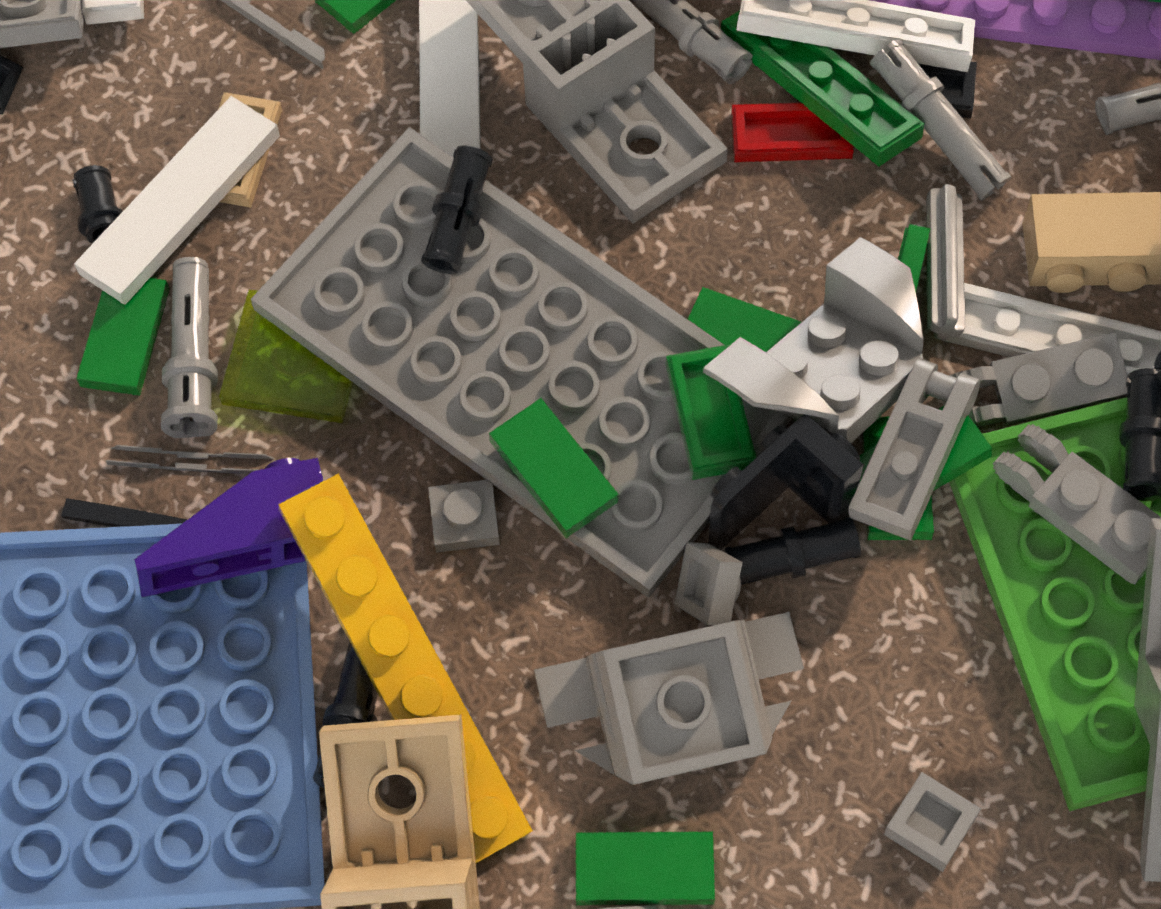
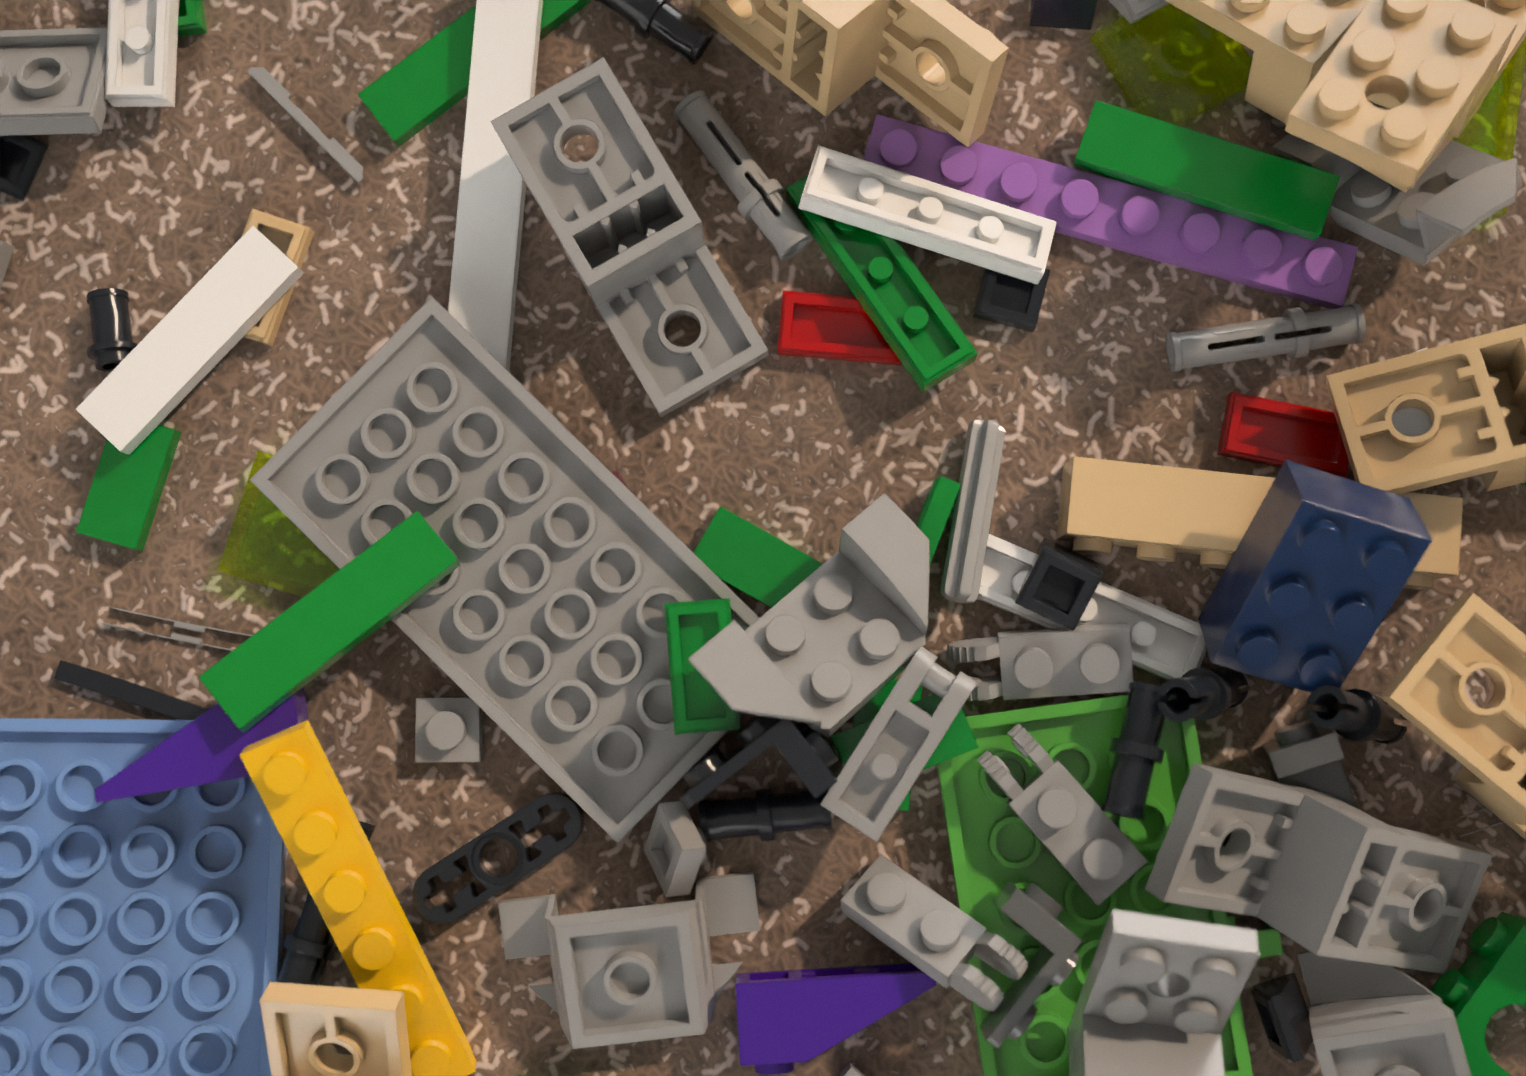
camera: 10 degrees right, 20 degrees up
(189, 370) = (191, 539): light grey pin -> none
(346, 397) = (329, 621): none -> green tile
(457, 209) = (467, 411): black pin -> none
(531, 599) = (449, 868): none -> black beam
(553, 467) = (535, 710): green tile -> none
(866, 723) = (807, 1011): none -> dark purple slope
(940, 119) = (996, 343): light grey pin -> none
(981, 625) = (930, 932): none -> light grey hinge
(1040, 309) = (1059, 584): none -> black slope
(1087, 596) = (1051, 964): none -> dark grey bracket

